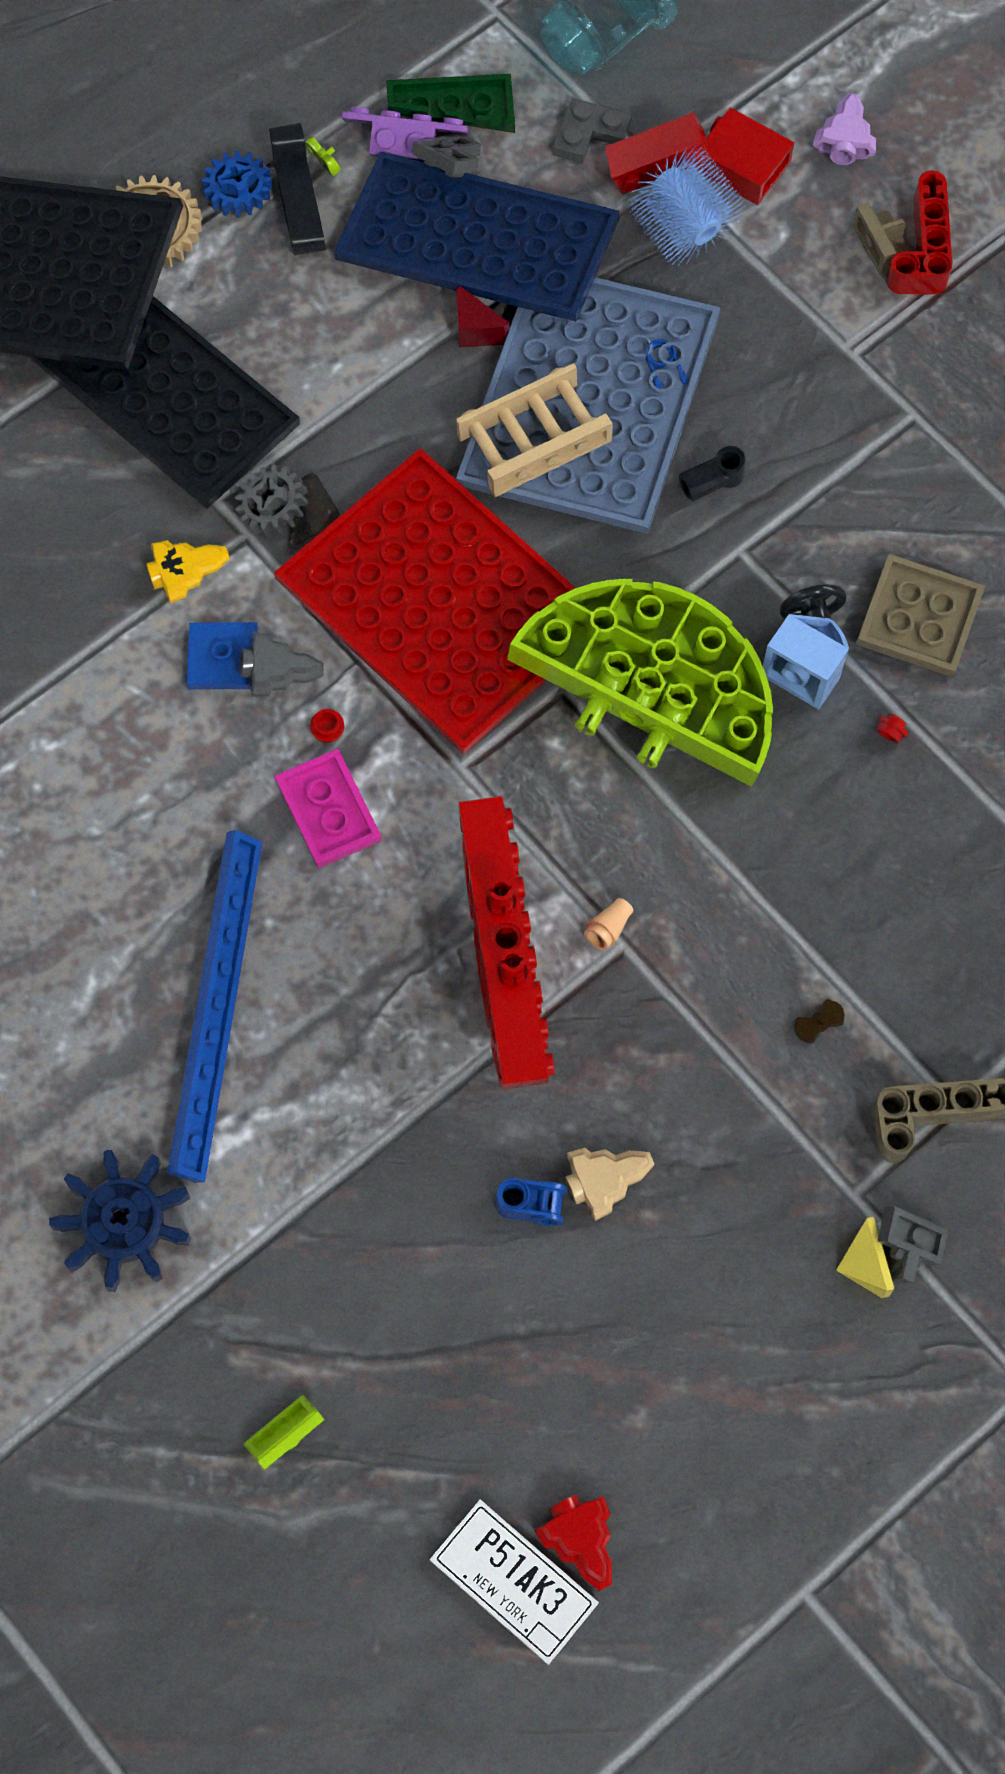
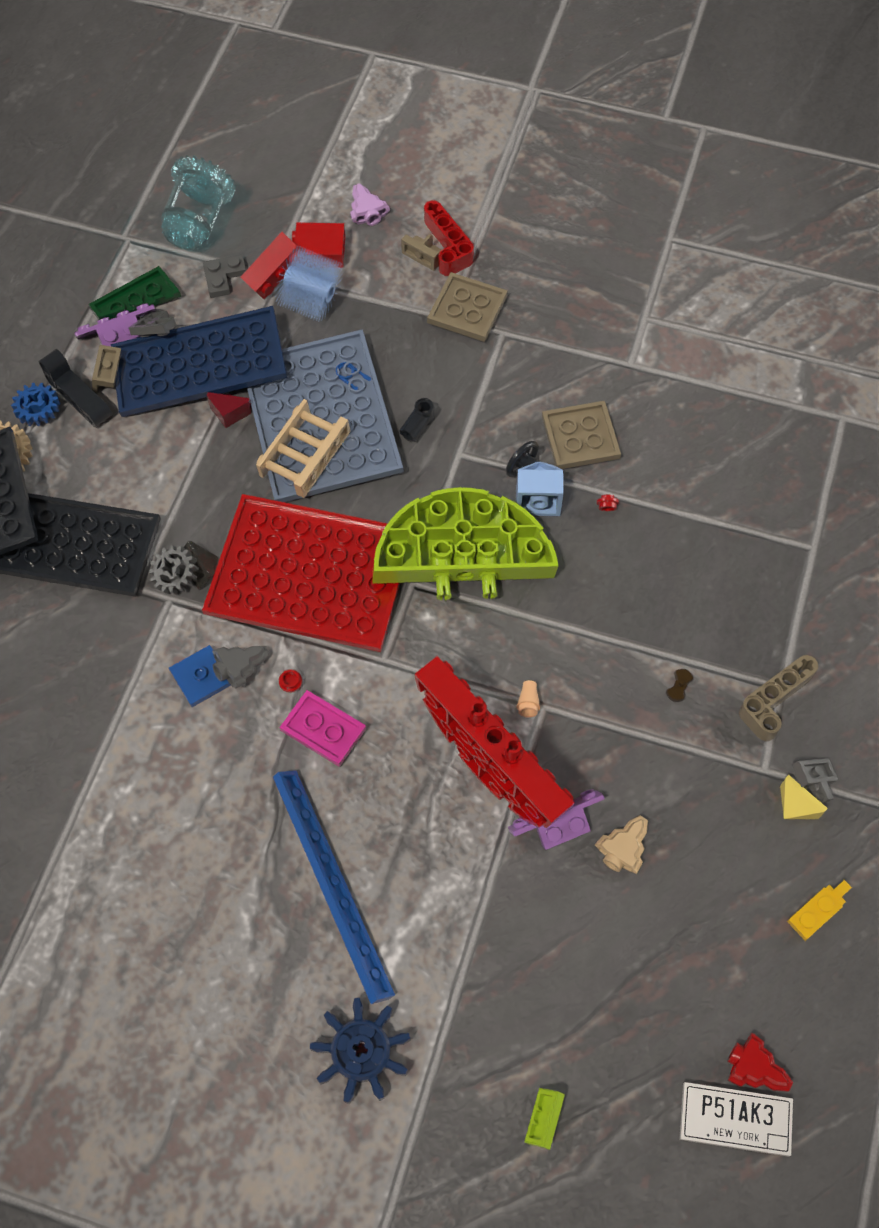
camera: 30 degrees left, 5 degrees down
(183, 566) = (143, 638): yellow rock -> none
(325, 157) = (79, 363): lime piece -> none
(353, 181) = (106, 367): none -> dark tan panel
(534, 1201) = (597, 882): blue piece -> none
(547, 1105) = (568, 826): none -> medium lavender bracket
(797, 1407) = (819, 910): none -> yellow hinge
(888, 351) = (467, 306): none -> dark tan plate

